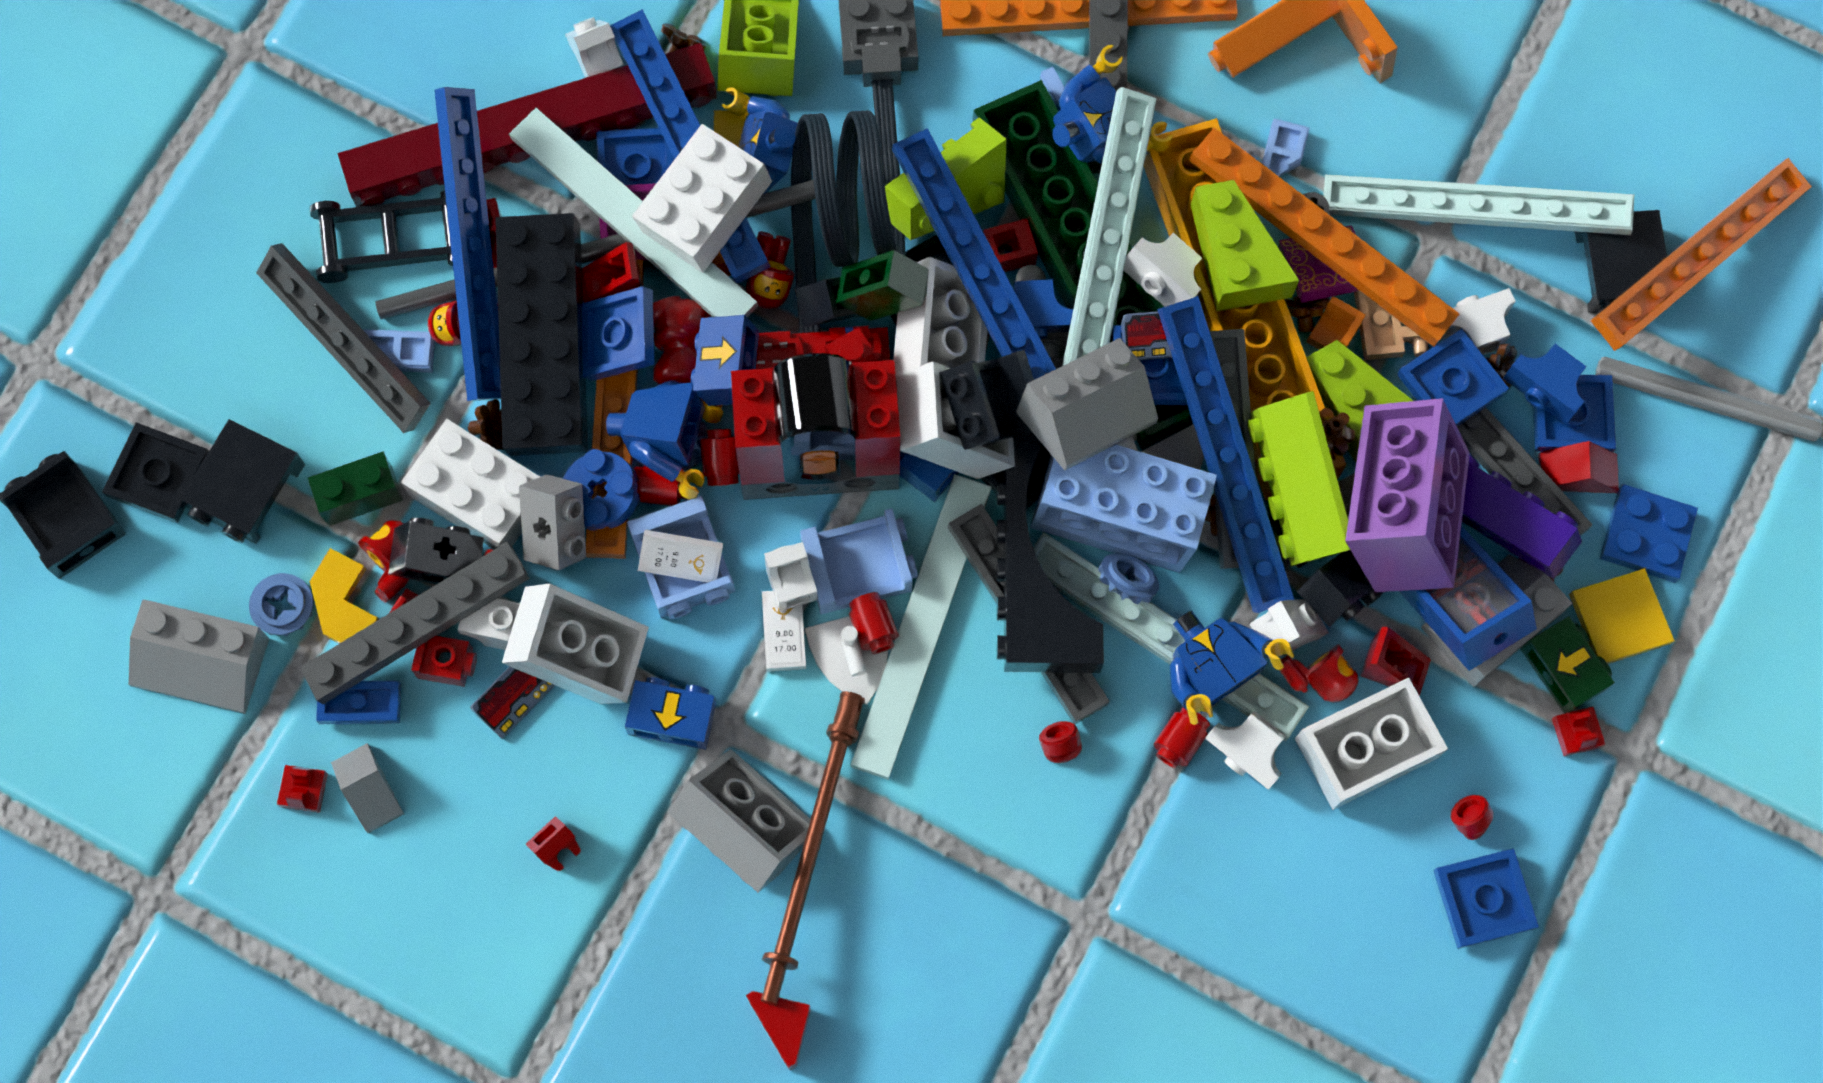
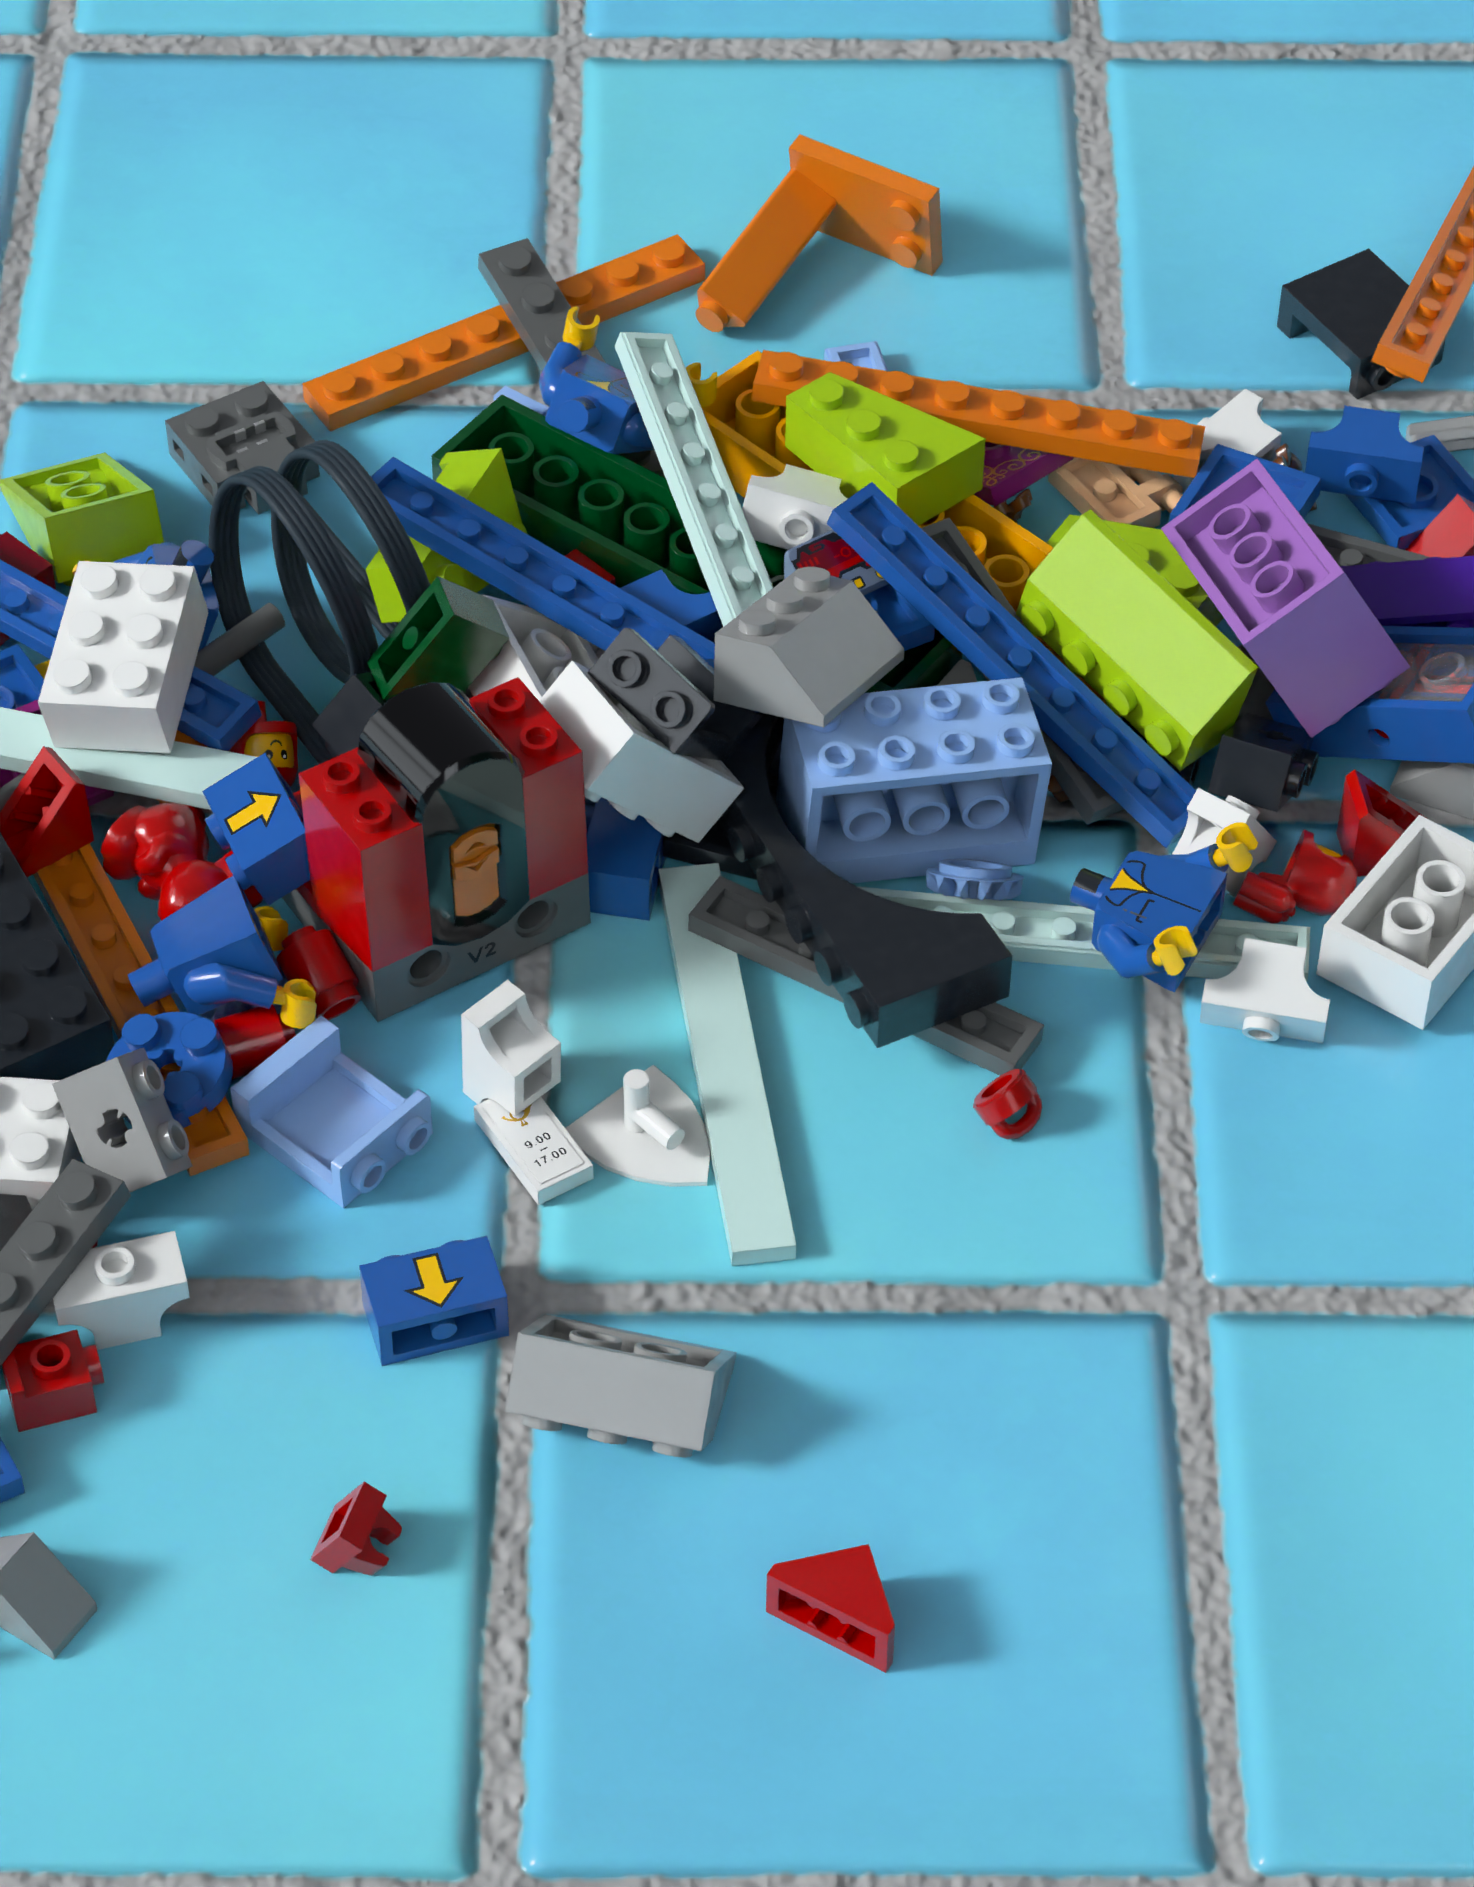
camera: 25 degrees left, 25 degrees down
(509, 700) = (180, 1381): slope -> none
(575, 644) = (247, 1247): white brick -> none
(617, 333) = (90, 870): blue plate -> none
(680, 556) = (330, 1102): white tile -> none
(841, 734) = (789, 1504): copper bar -> none
(859, 561) = (607, 1014): light blue panel -> none
(873, 623) = (672, 1073): red brick -> none
(1181, 739) = (1168, 1026): red brick -> none
(1337, 323) = (1053, 500): orange panel -> none
(1480, 204) = (1163, 321): light aqua tile -> none

